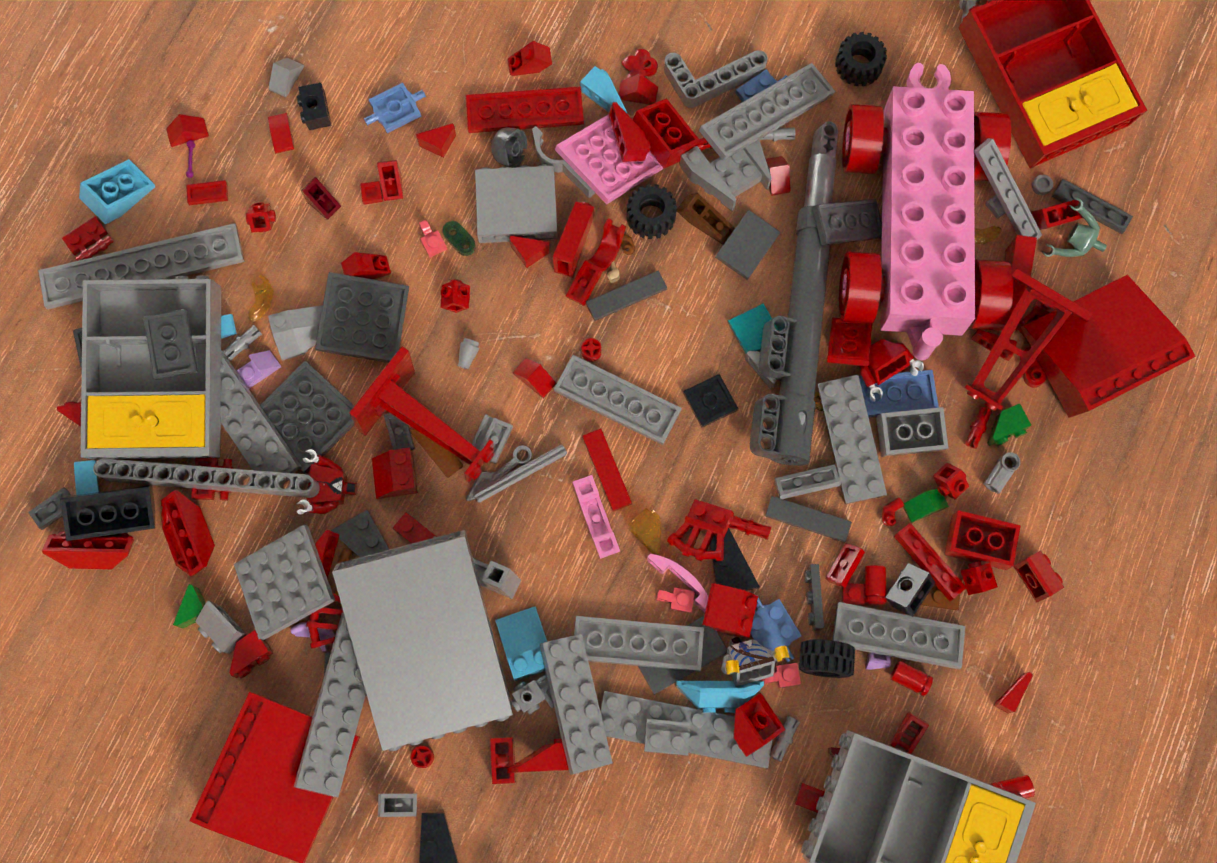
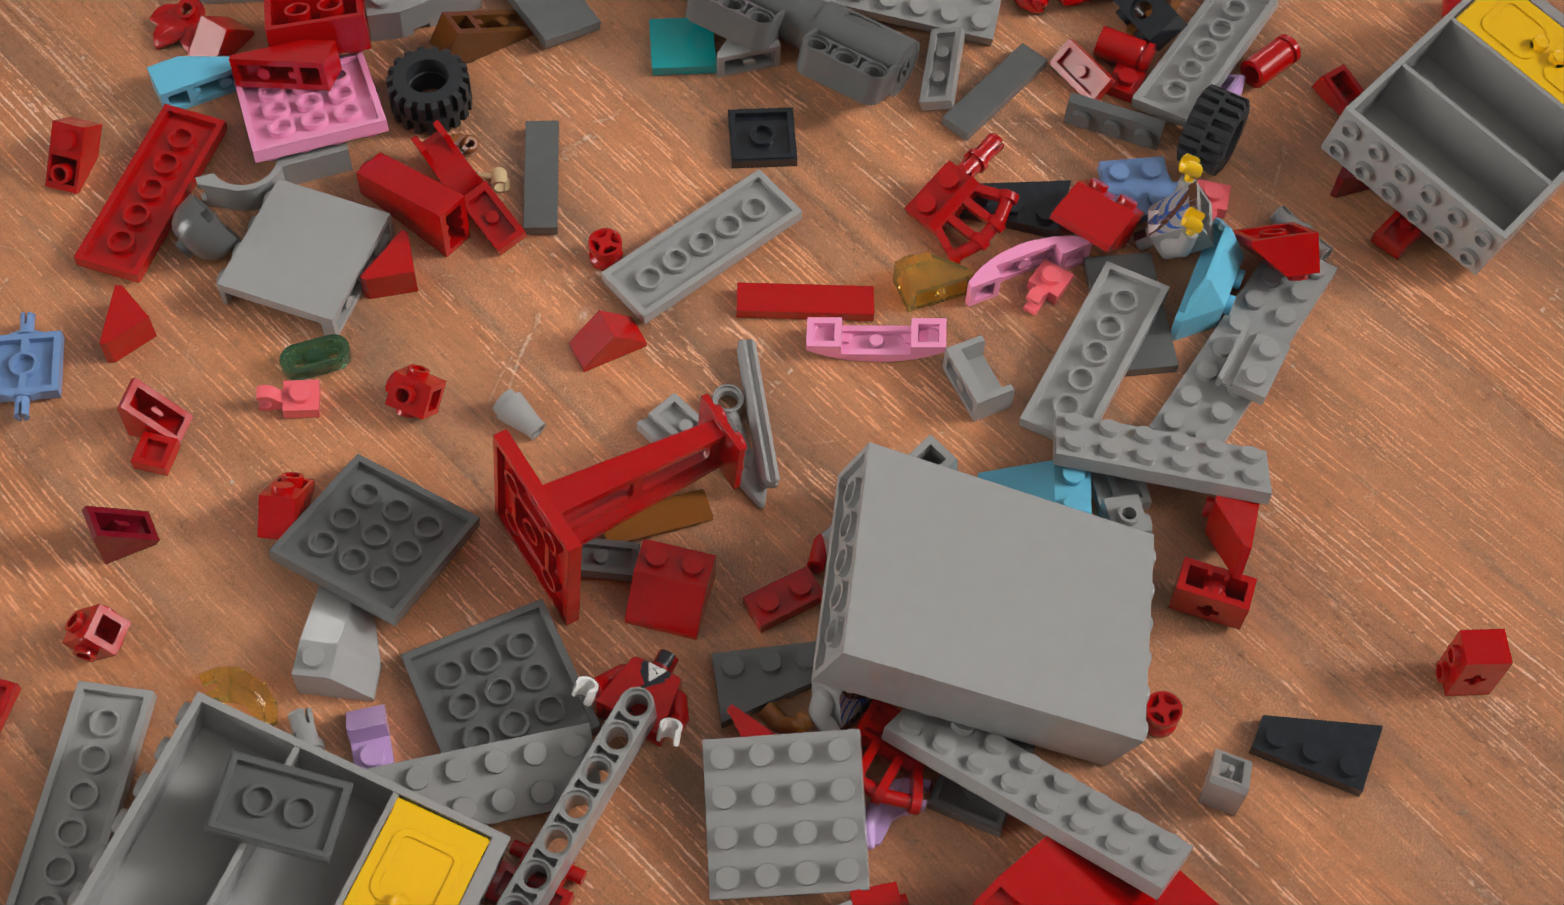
camera: 70 degrees left, 15 degrees down
(593, 583) = (975, 379): none -> light grey panel

